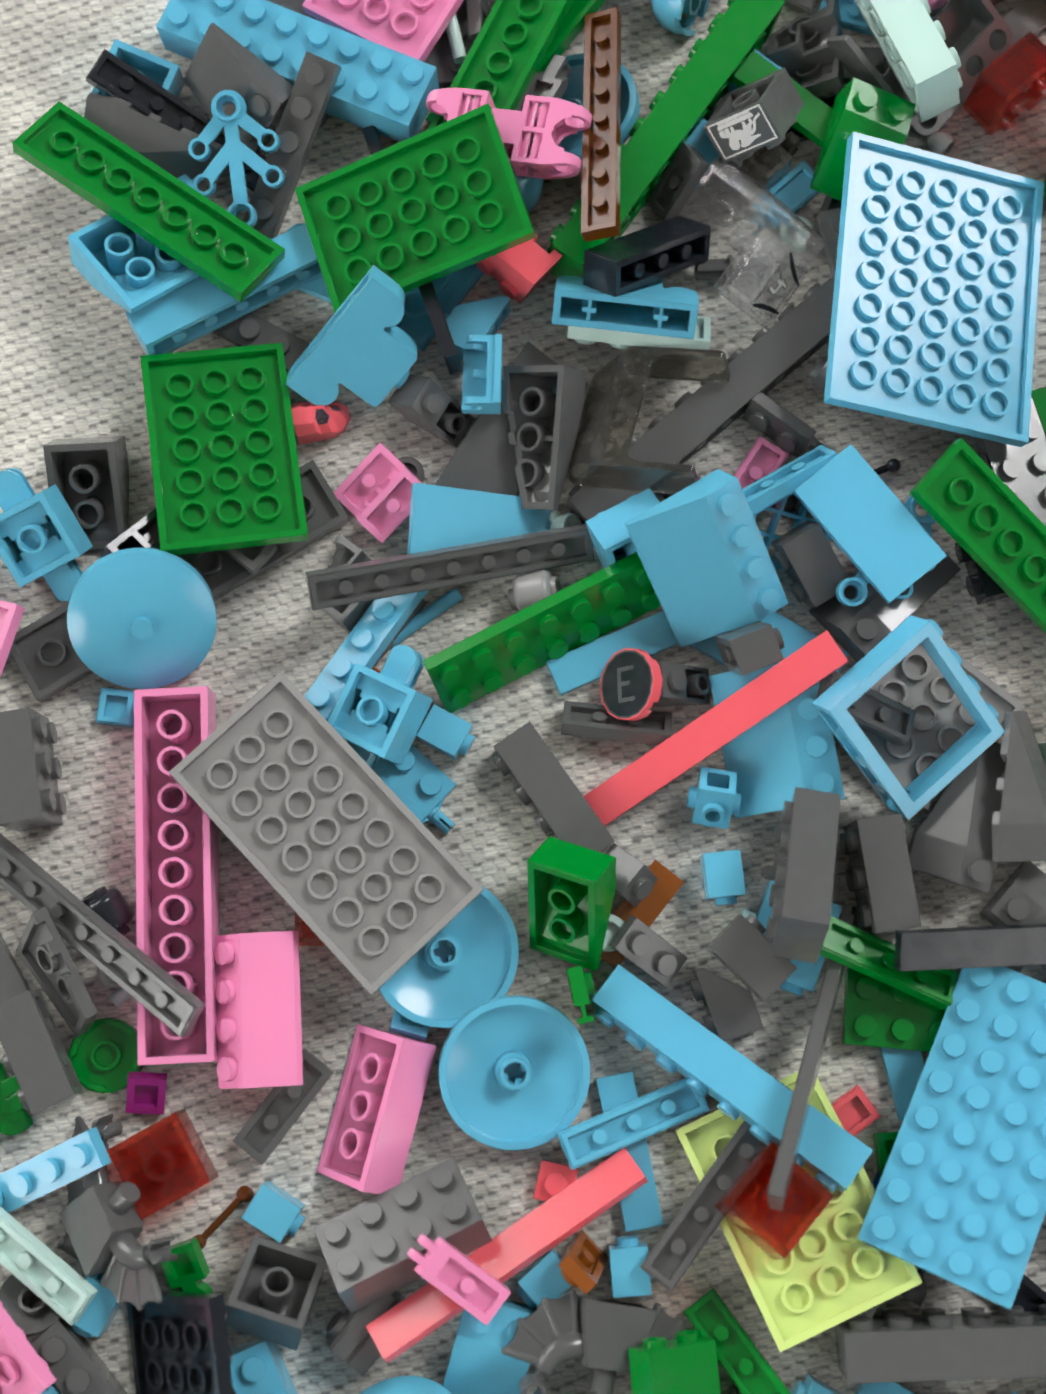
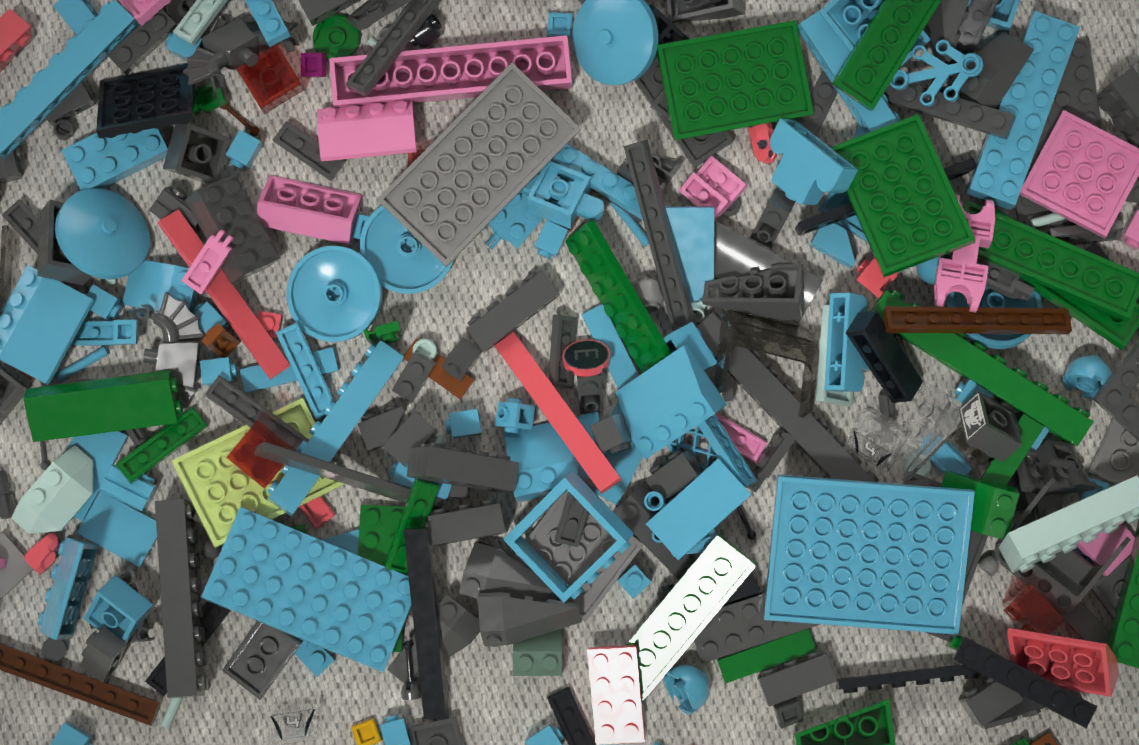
camera: 90 degrees right, 5 degrees up
(482, 374) = (793, 250): medium azure hinge -> none
(570, 901) = (442, 323): green slope -> none
(678, 182) = (945, 378): dark grey plate -> none
(966, 631) = (634, 581): none -> medium azure brick

